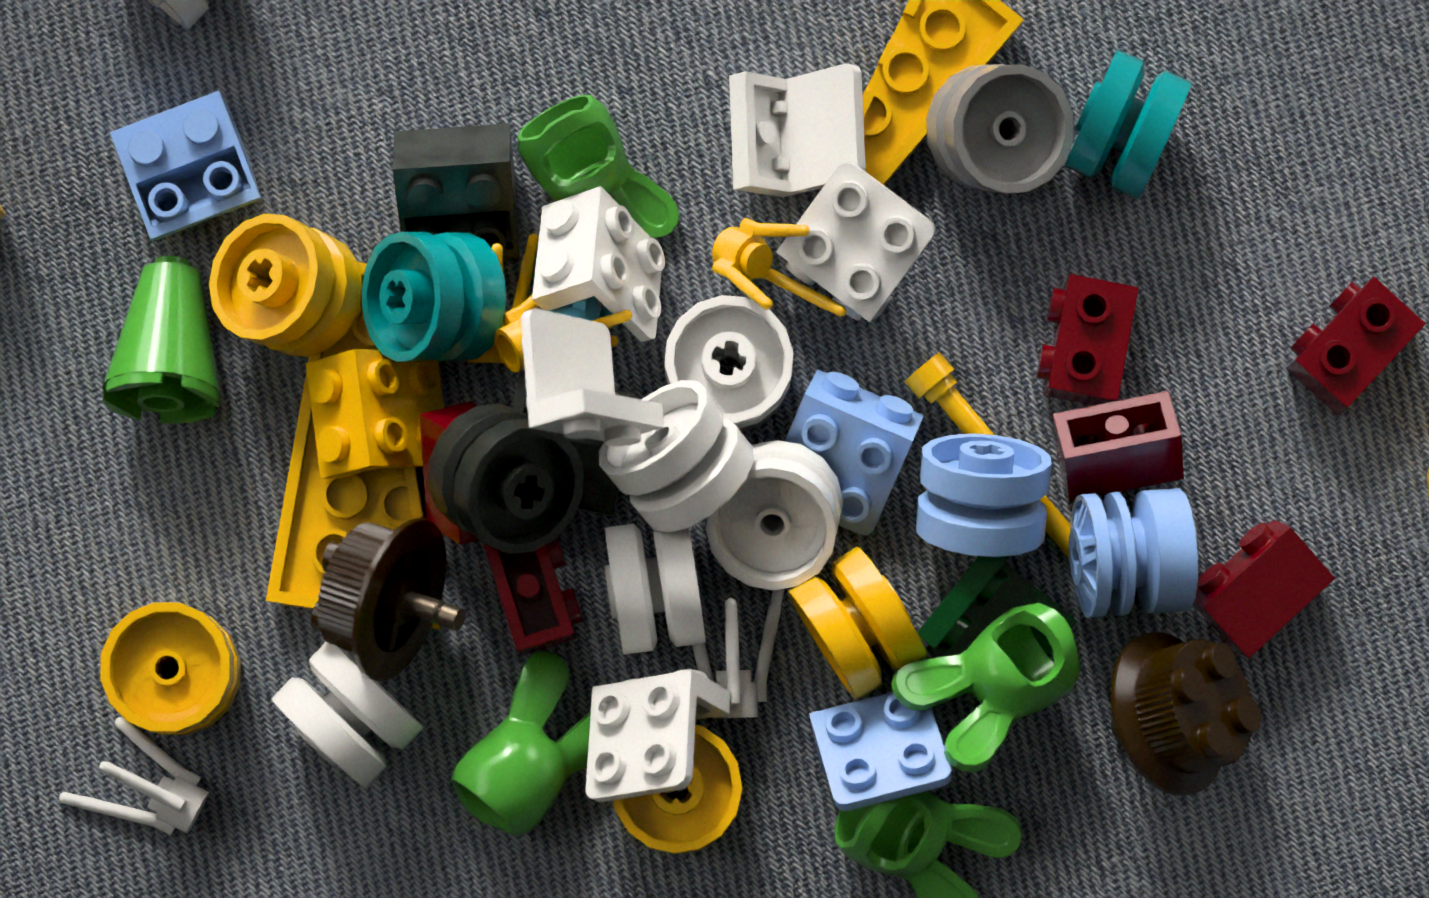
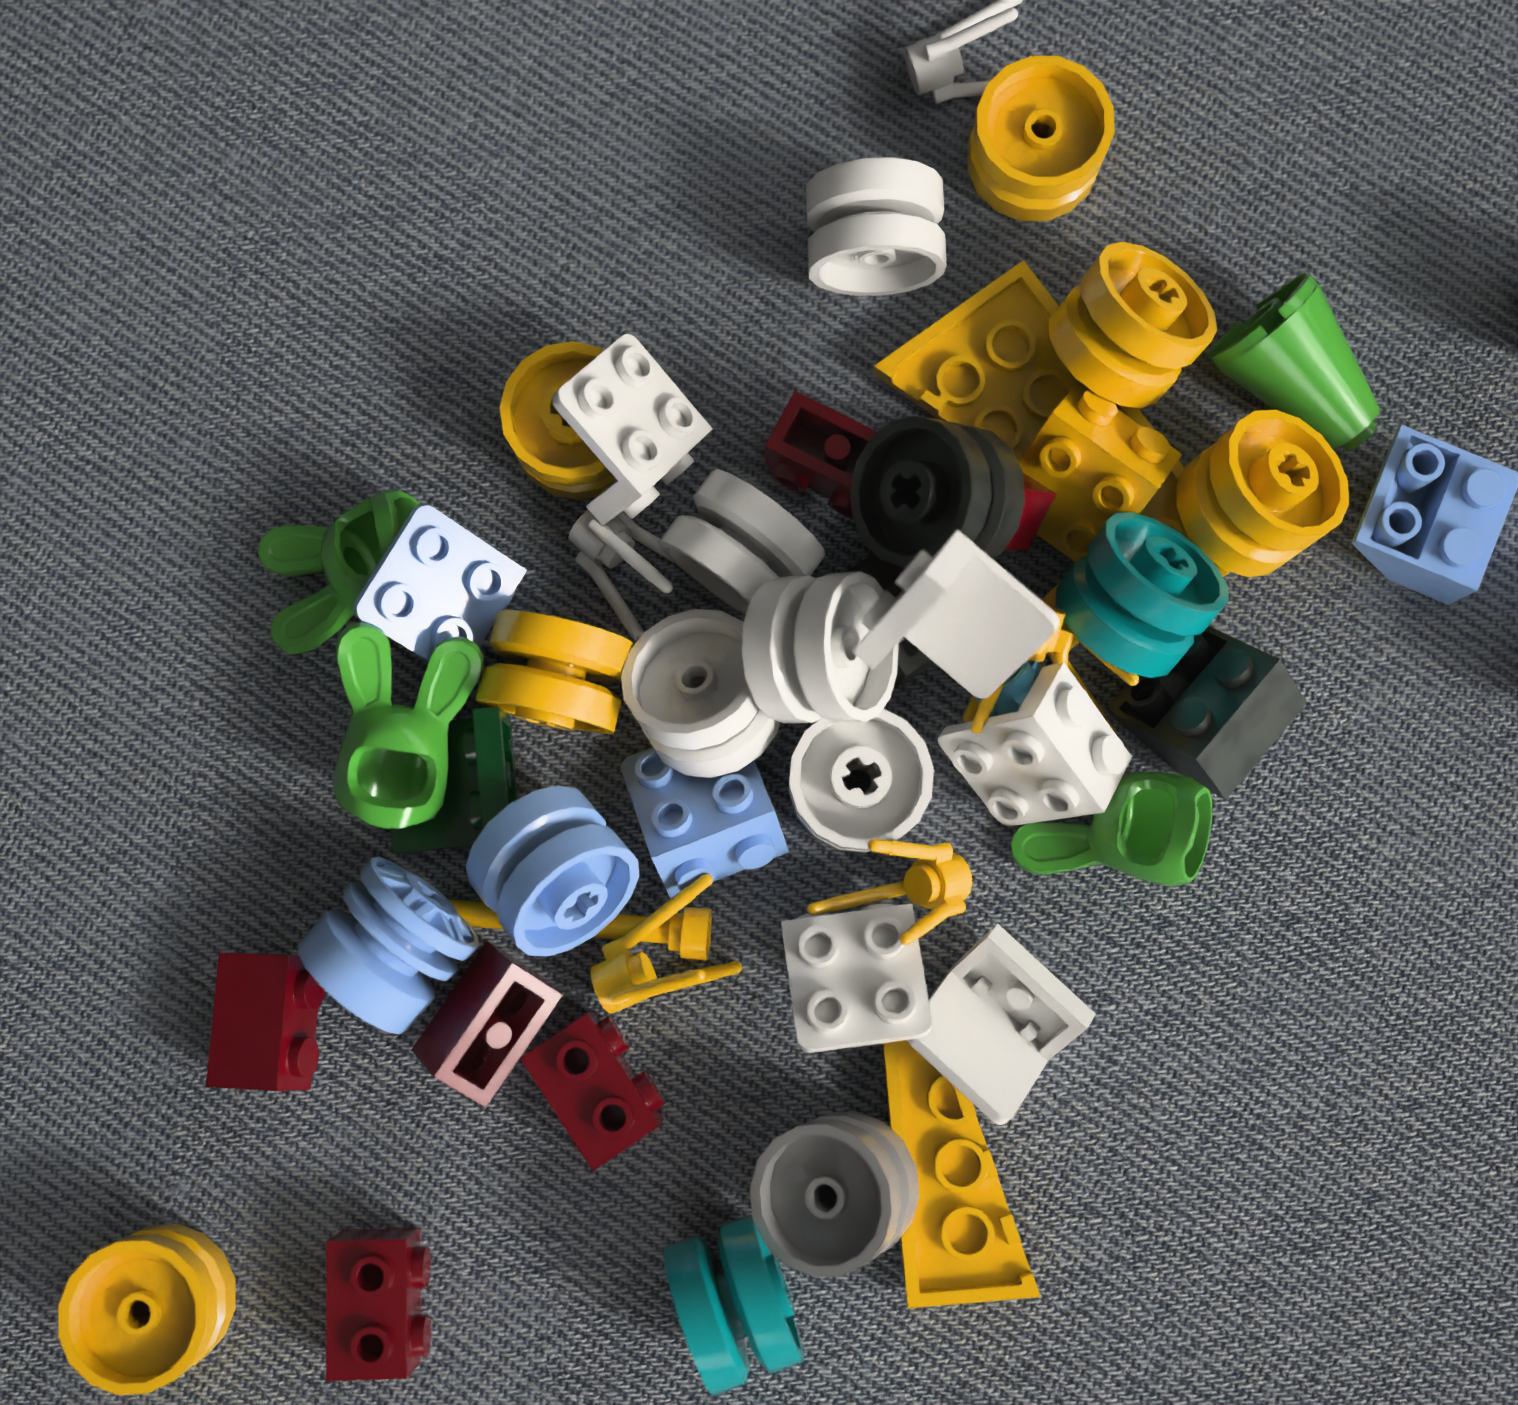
camera: 140 degrees right, 0 degrees up
(252, 476) = (1131, 325): none -> yellow wheel
(384, 594) = (937, 325): dark brown piece -> none
(515, 768) = (710, 318): bright green piece -> none
(1001, 386) = (630, 978): none -> yellow plant
(1181, 710) = (231, 855): dark brown piece -> none

